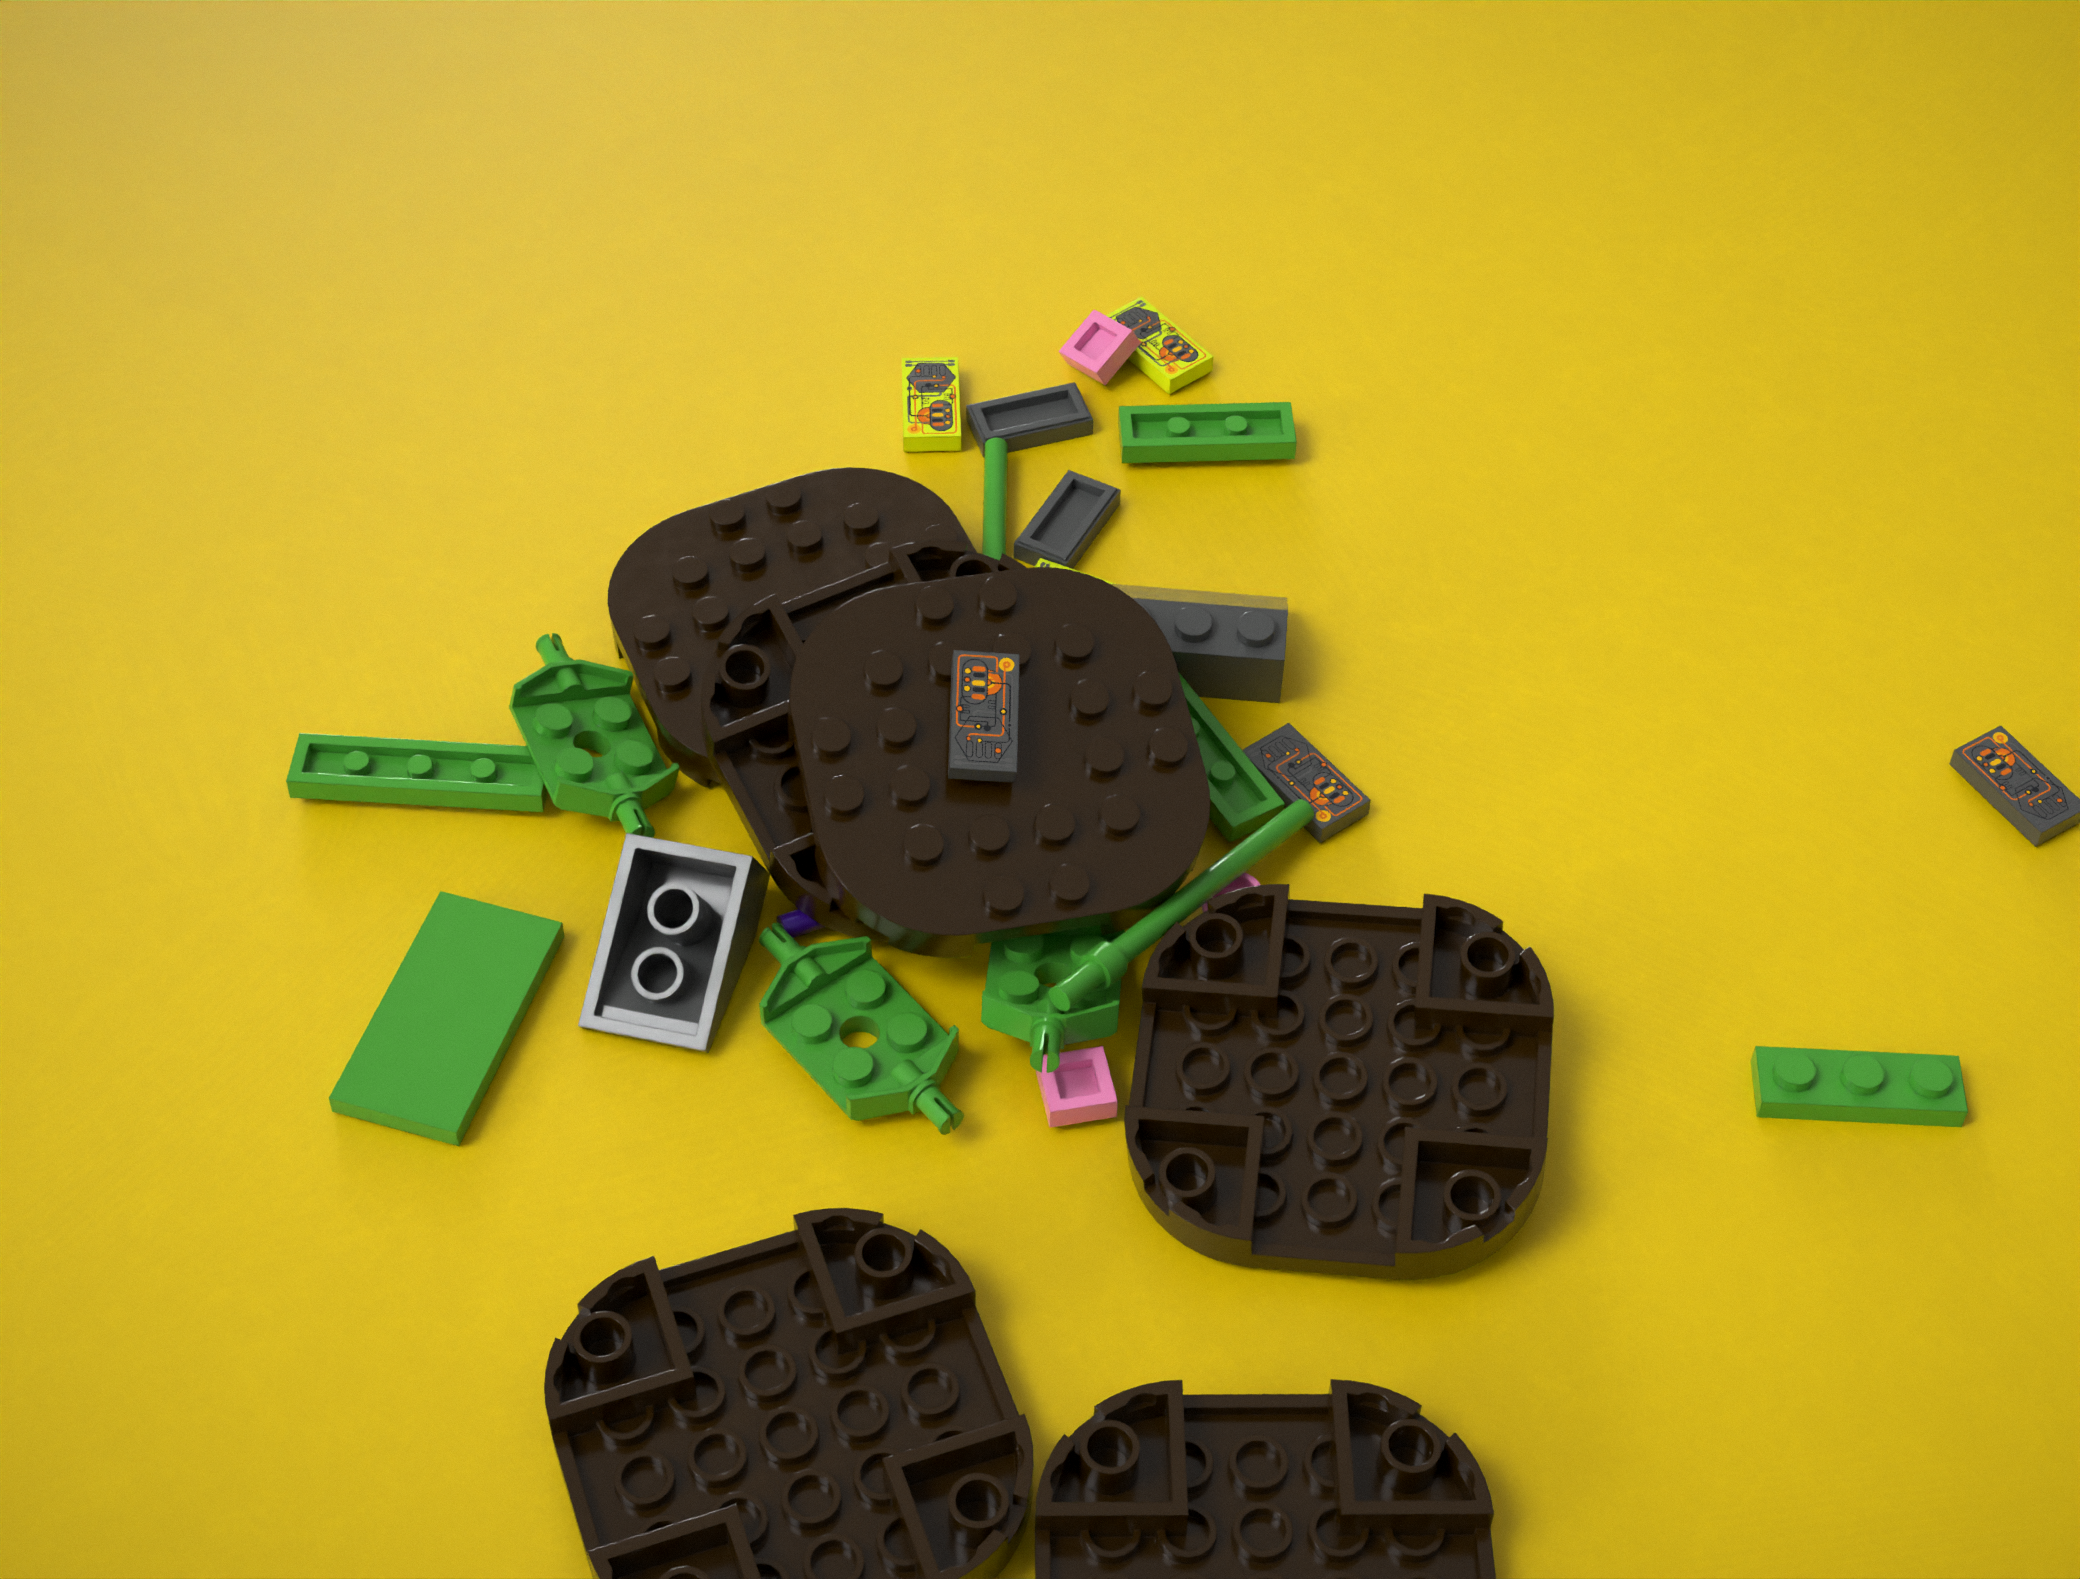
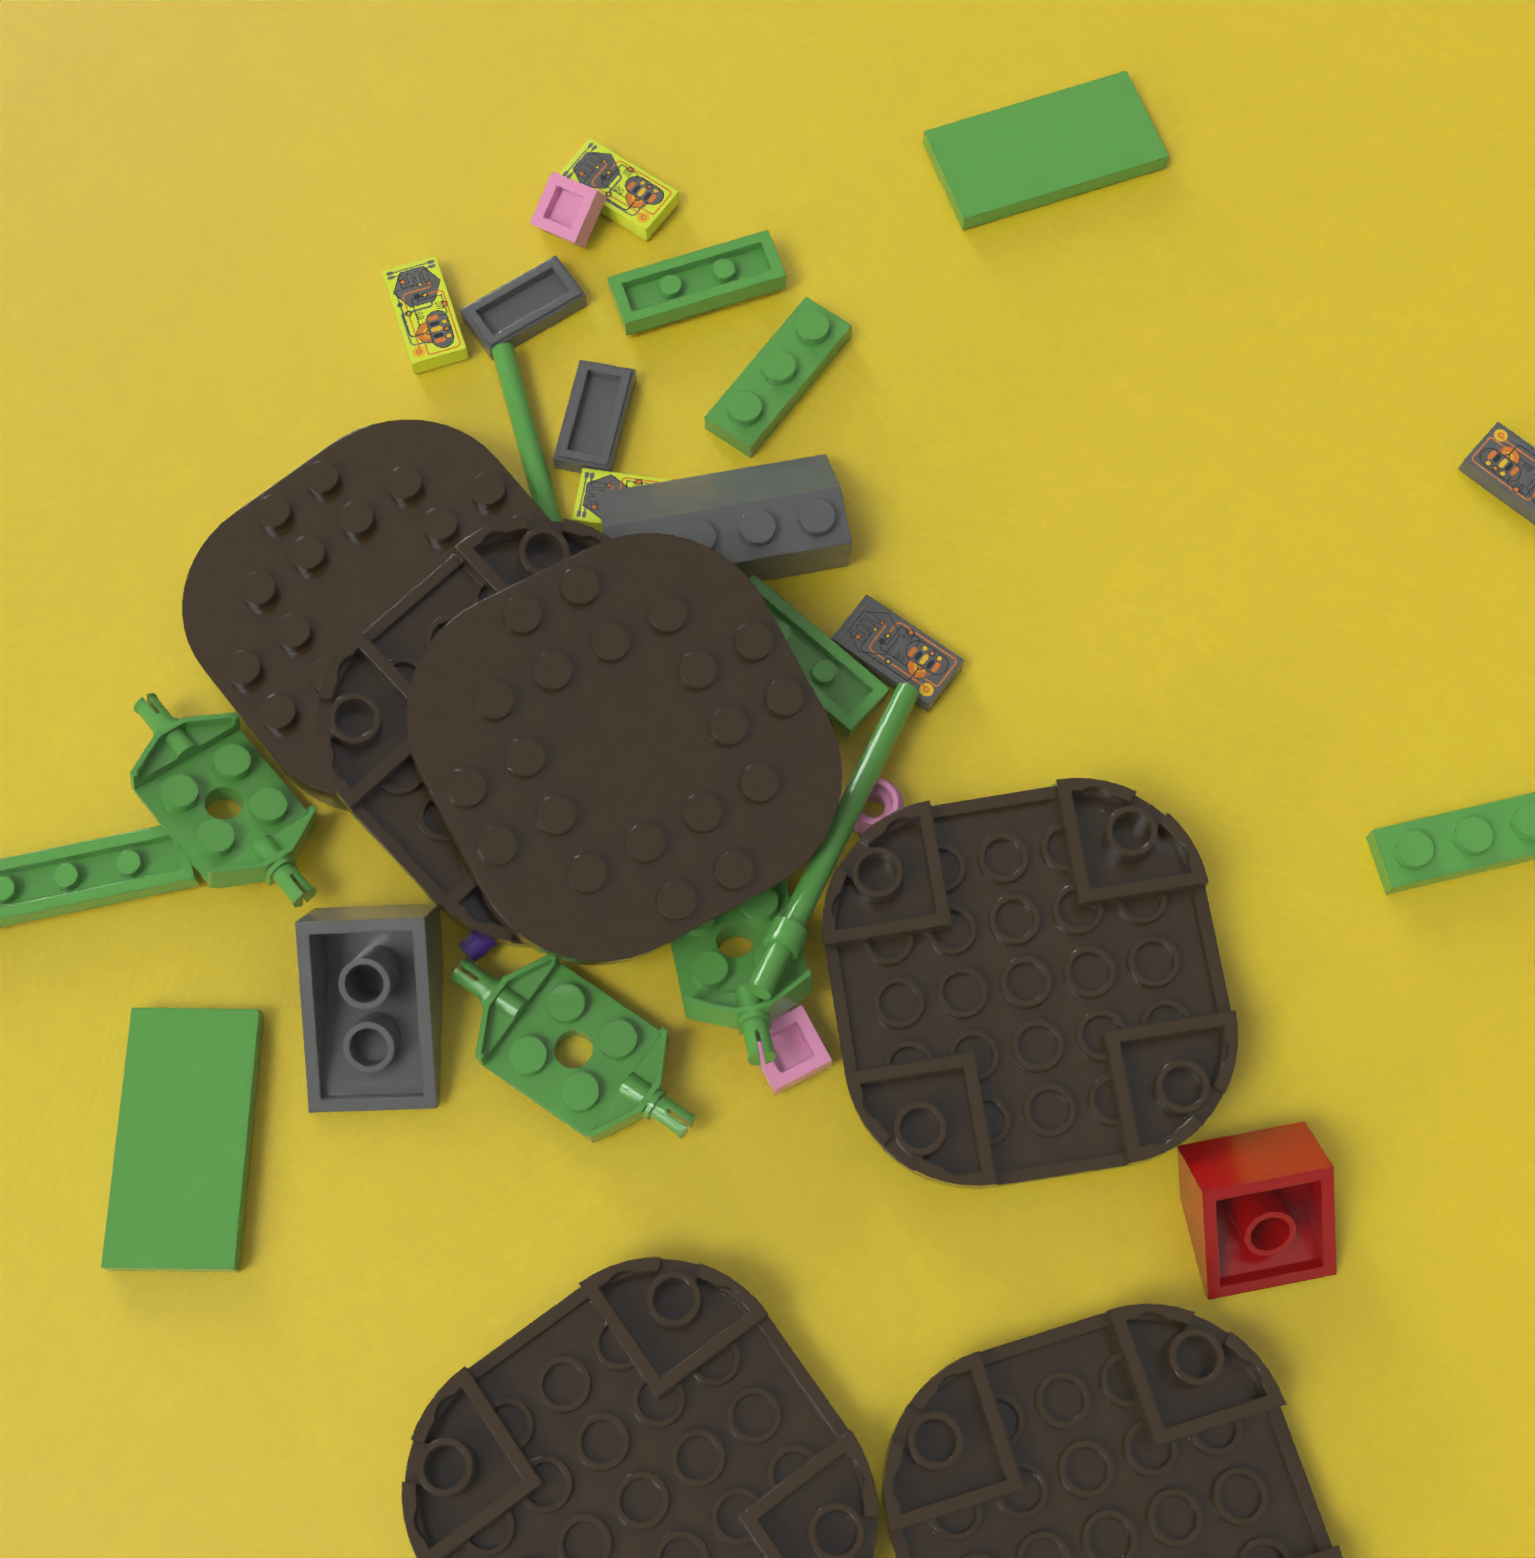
camera: 15 degrees left, 20 degrees up
(983, 716) = (606, 726): tile -> none
(1261, 529) = (778, 377): none -> bright green plate
(1524, 1351) = (1259, 1209): none -> red slope
(1596, 402) = (1045, 149): none -> bright green tile

